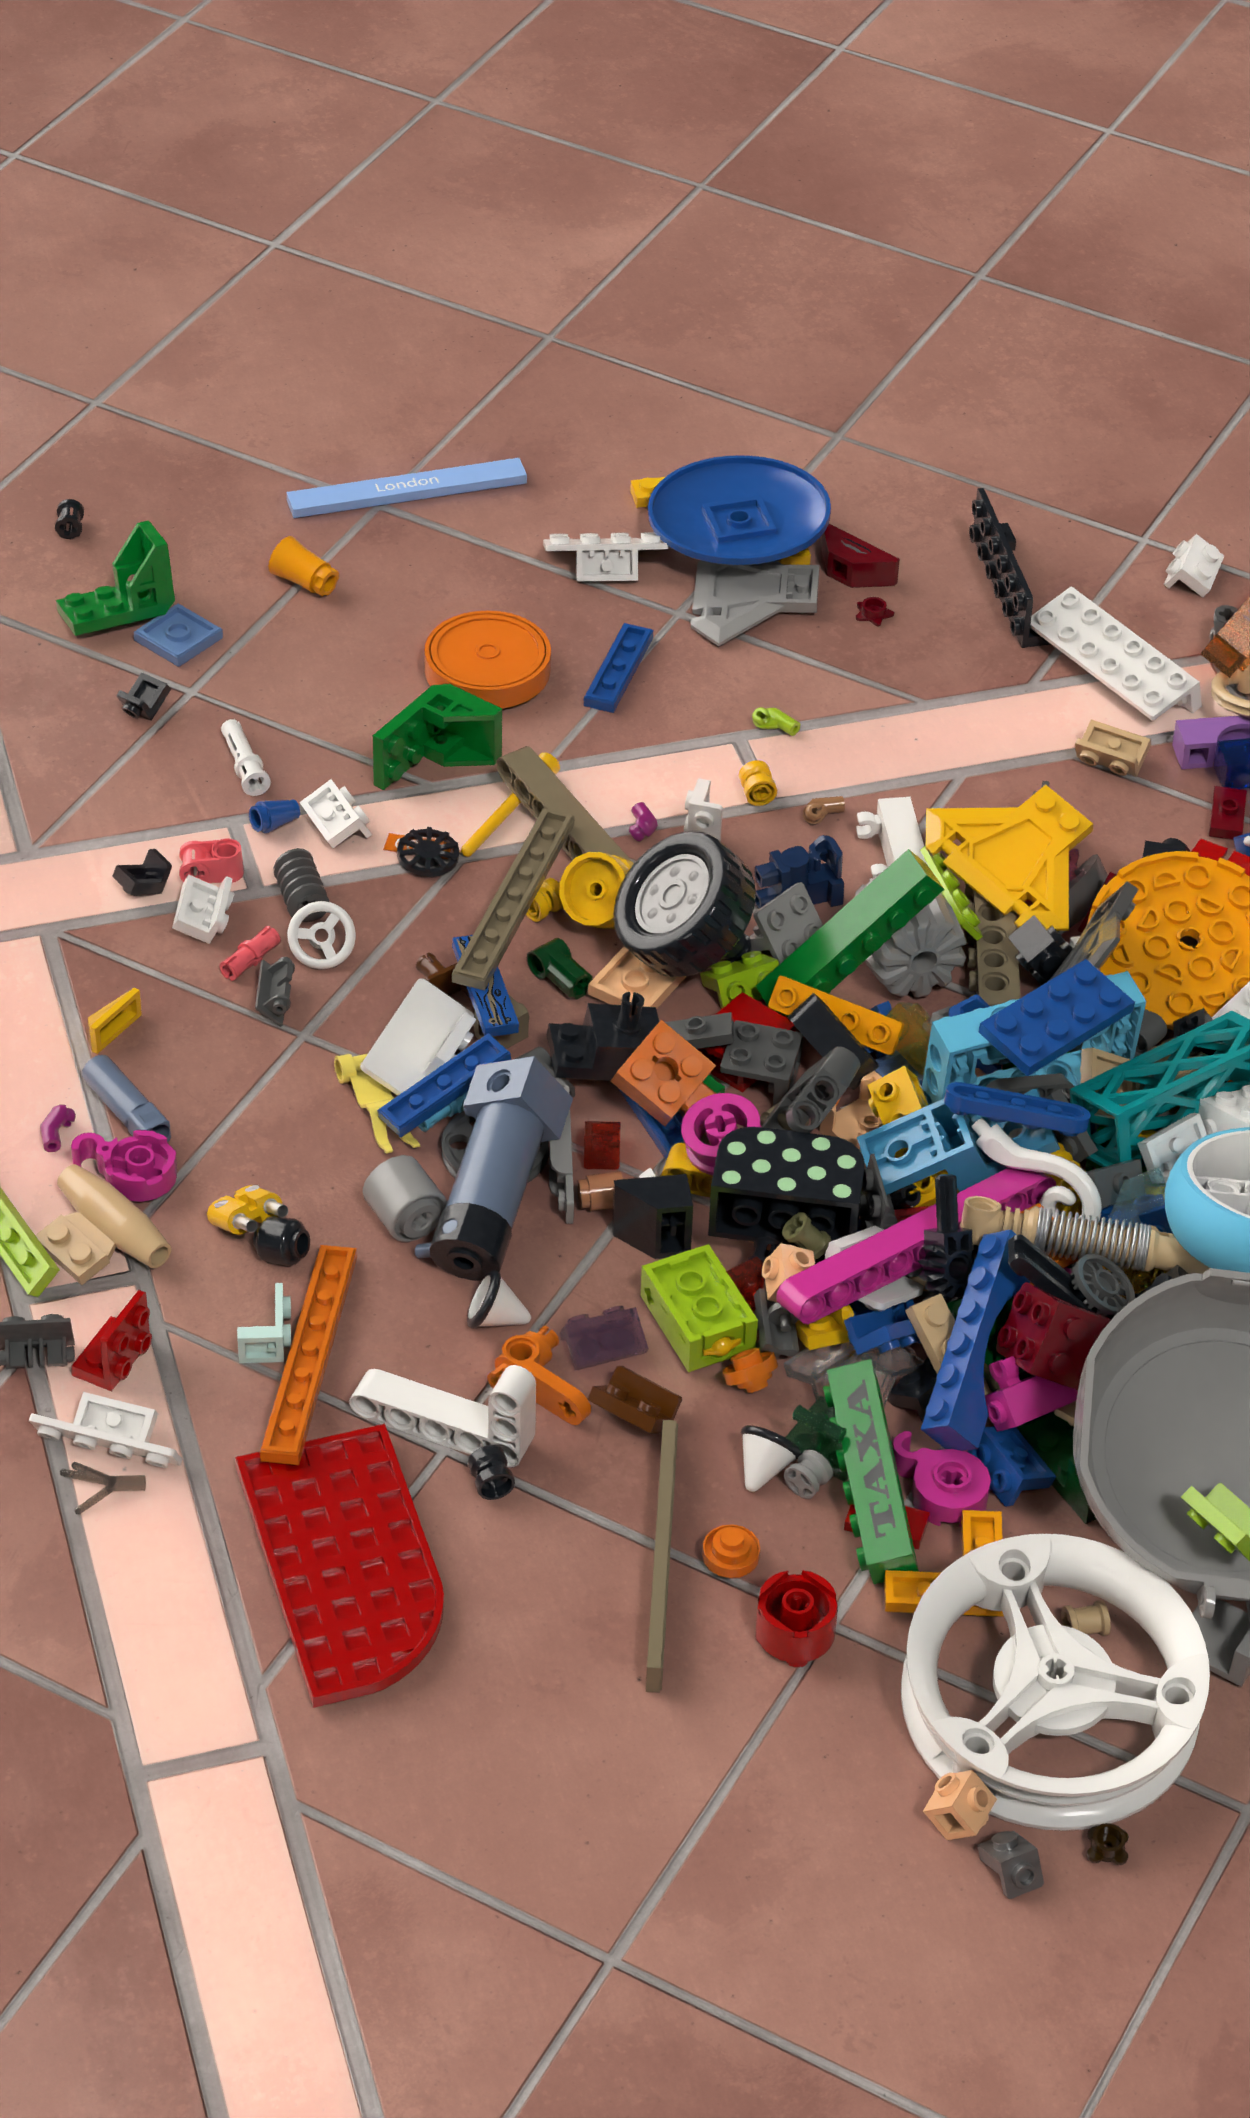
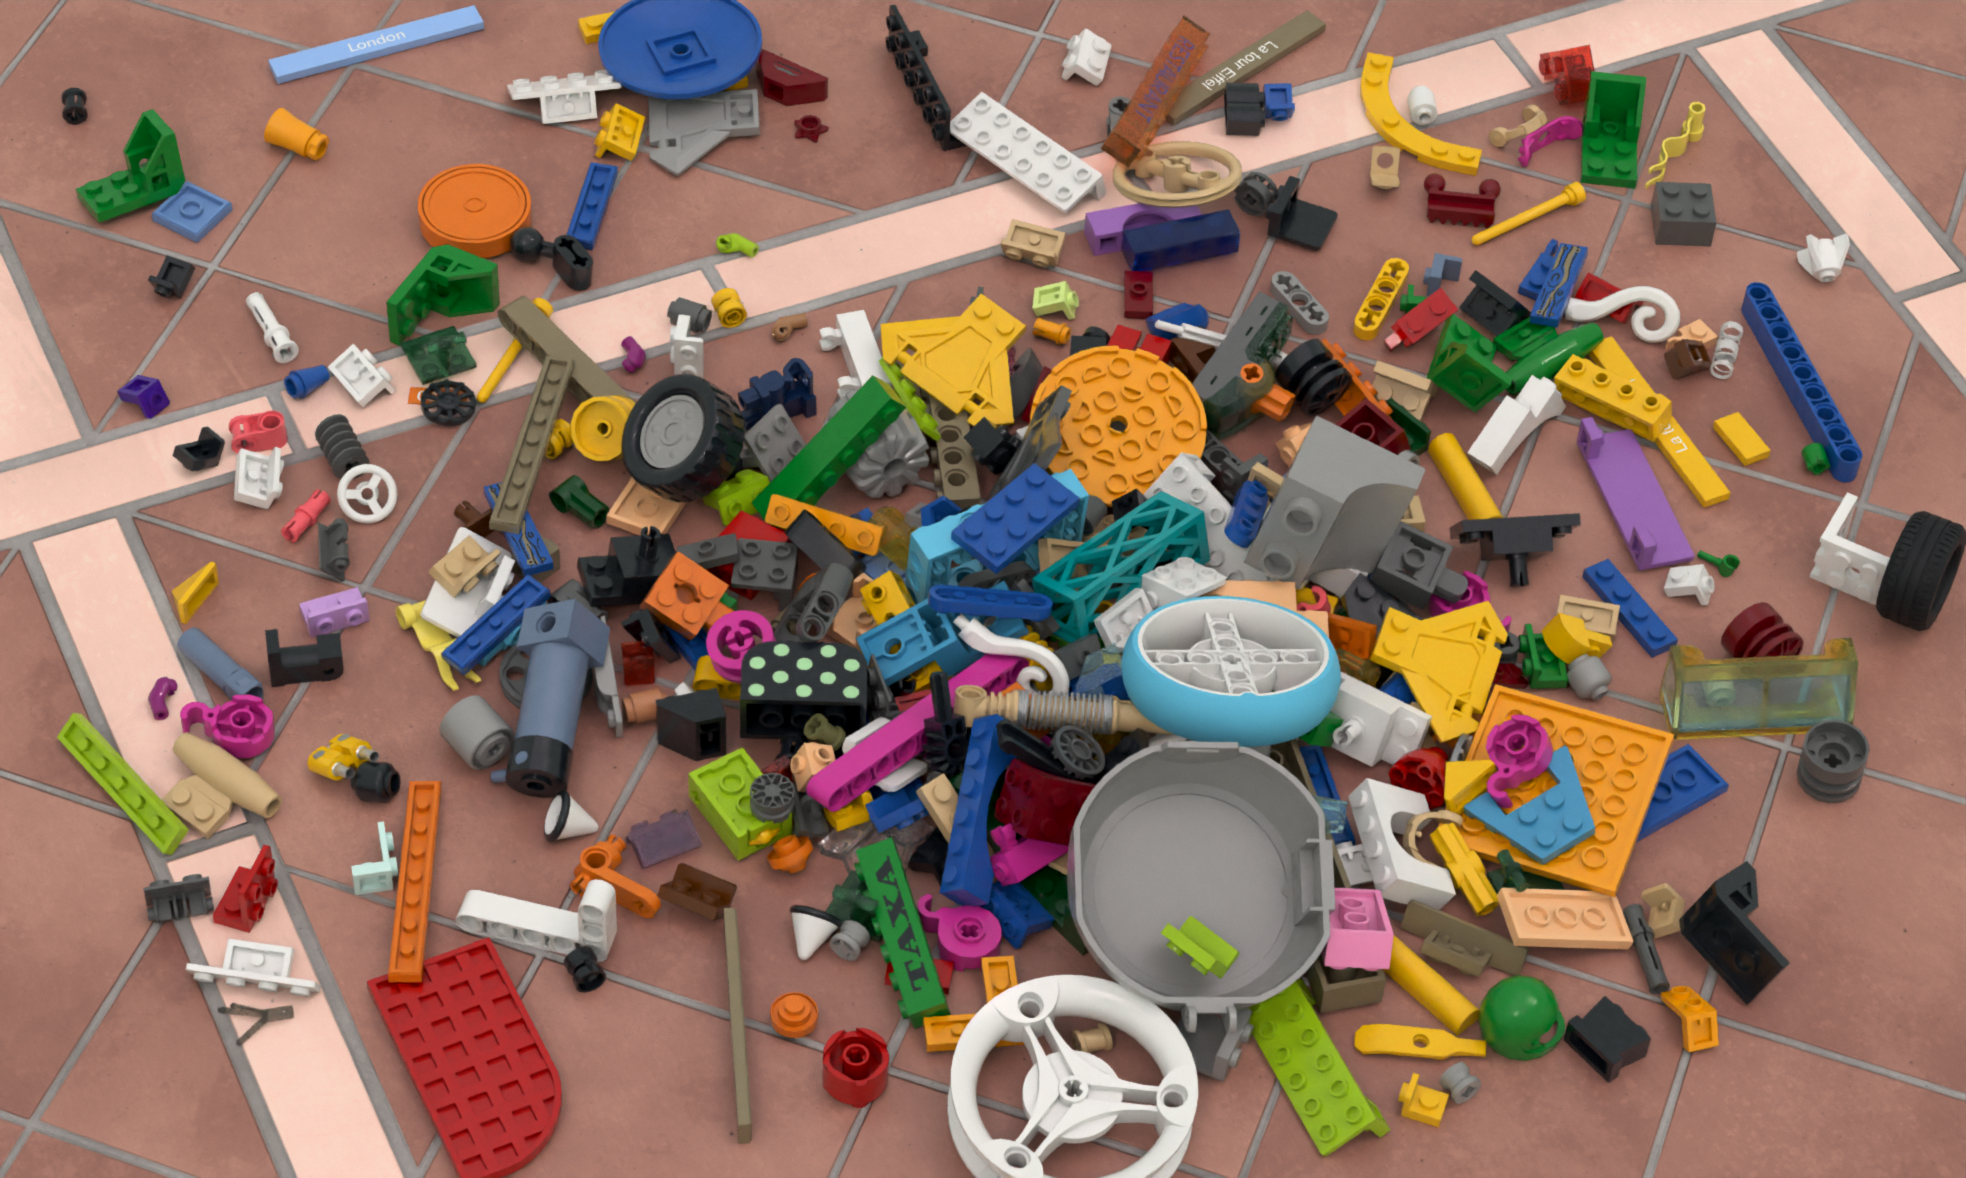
camera: 10 degrees left, 5 degrees up
(95, 811) = (146, 393): none -> dark purple bracket
(220, 1104) = (304, 662): none -> black piece
(265, 1057) = (334, 612): none -> lavender bracket
(417, 1020) = (463, 566): none -> tan bracket
(425, 802) = (438, 354): none -> clear green plate
(584, 712) = (568, 255): none -> black beam
(618, 1107) = (648, 628): none -> black bracket
(660, 595) = (619, 132): none -> yellow bracket
(722, 787) = (699, 314): none -> dark grey brick
(735, 1301) = (765, 791): none -> dark grey wheel
(1127, 842) = (1052, 331): none -> light orange pin
(1131, 806) = (1055, 298): none -> yellowish green bracket

